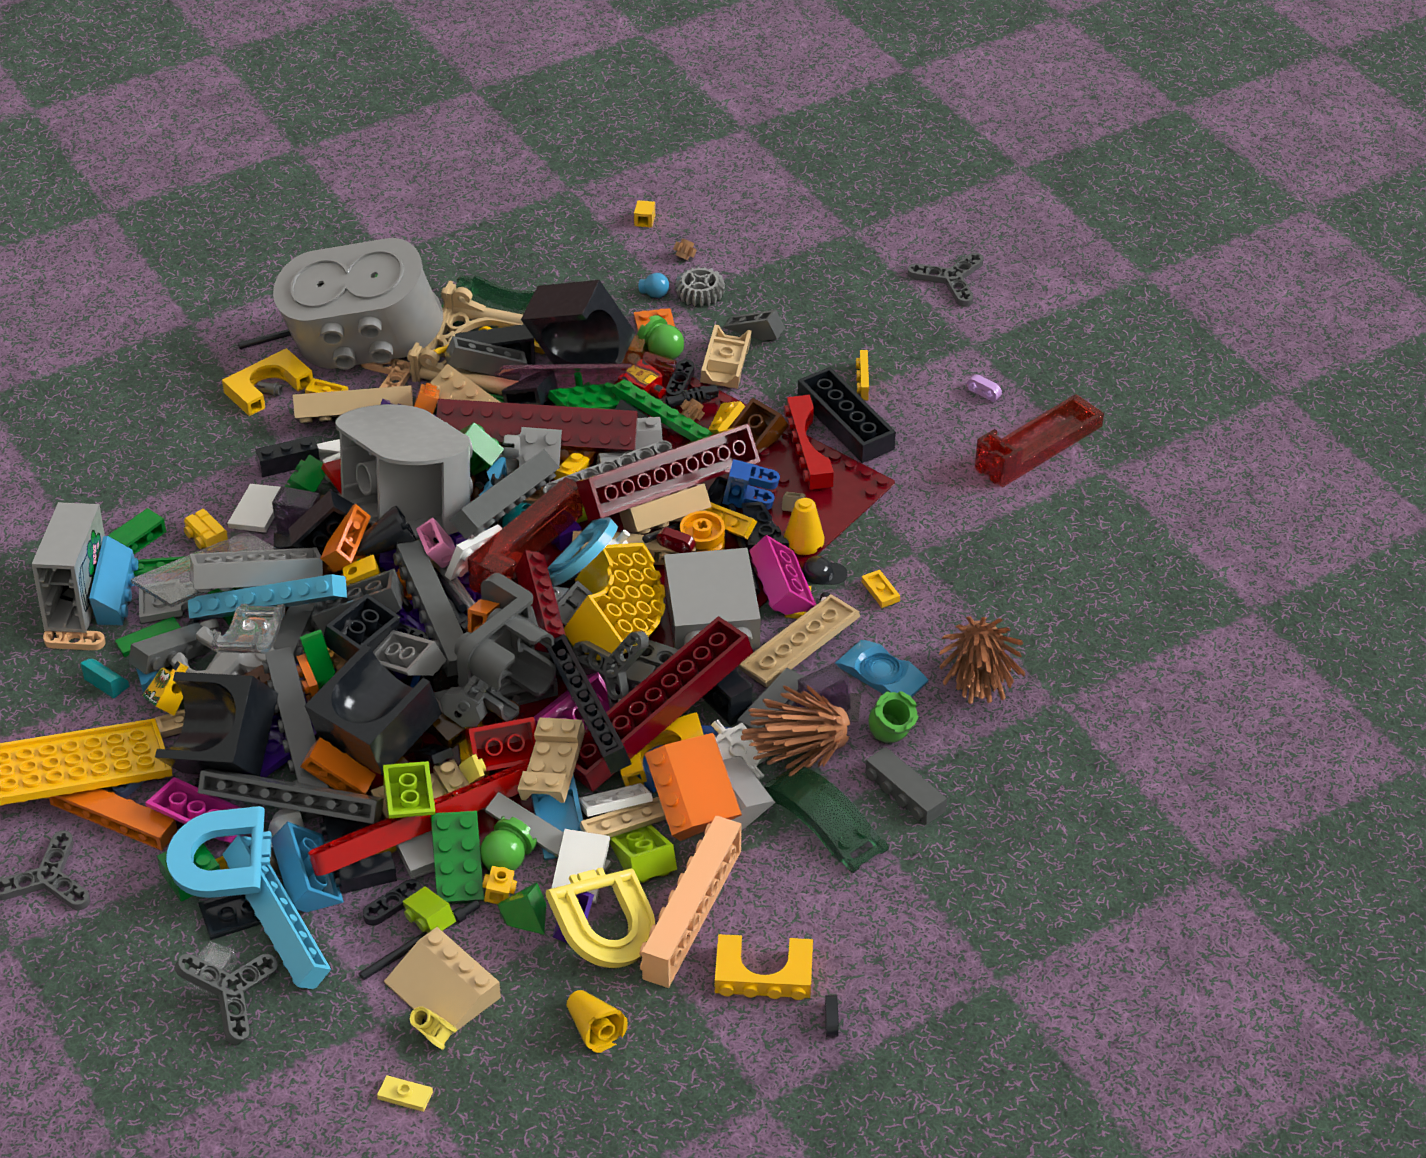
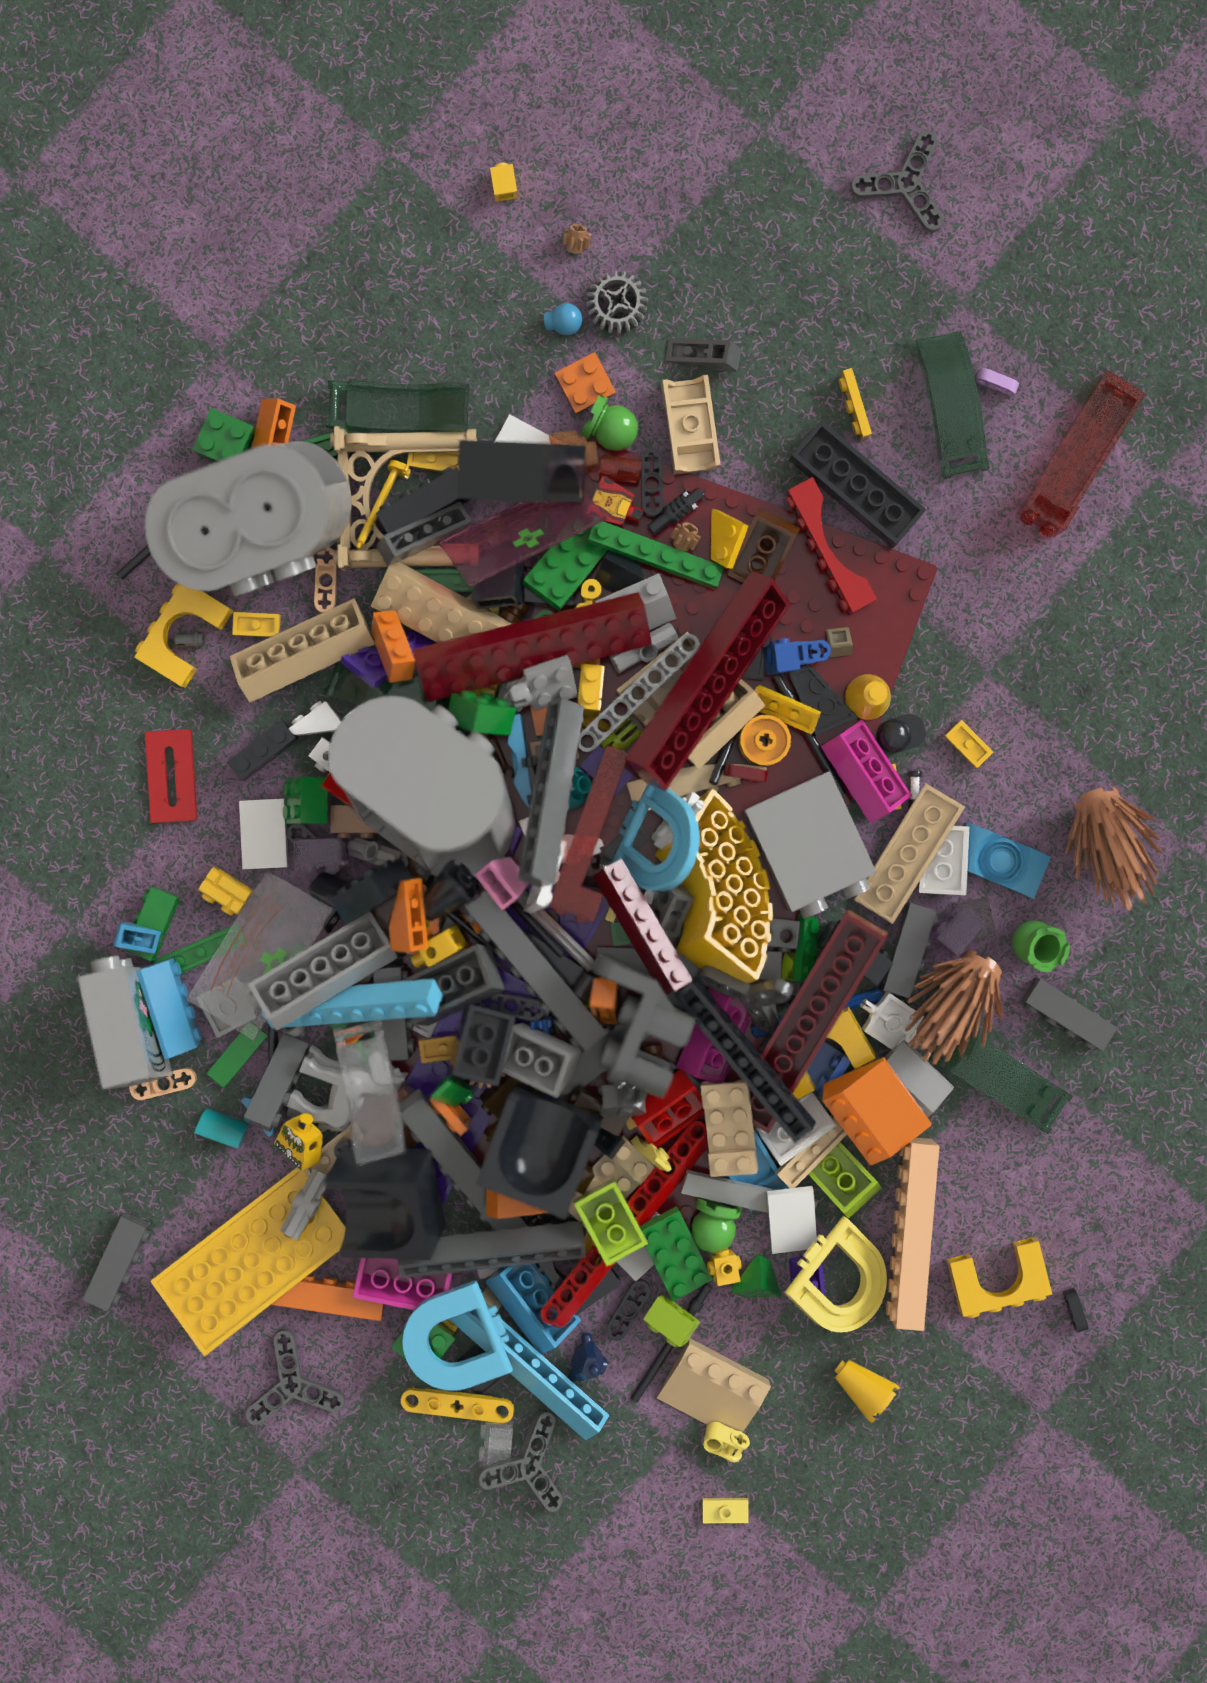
camera: 15 degrees left, 45 degrees up
(116, 525) = (136, 937): none -> dark azure slope
(145, 732) = (305, 1205): none -> light grey piece
(176, 926) = (474, 1405): none -> yellow piece
(205, 480) = (182, 745): none -> red piece
(332, 927) = (587, 1360): none -> dark blue rock
(834, 651) = (949, 867): none -> white plate
(943, 393) = (953, 402): none -> clear green windscreen

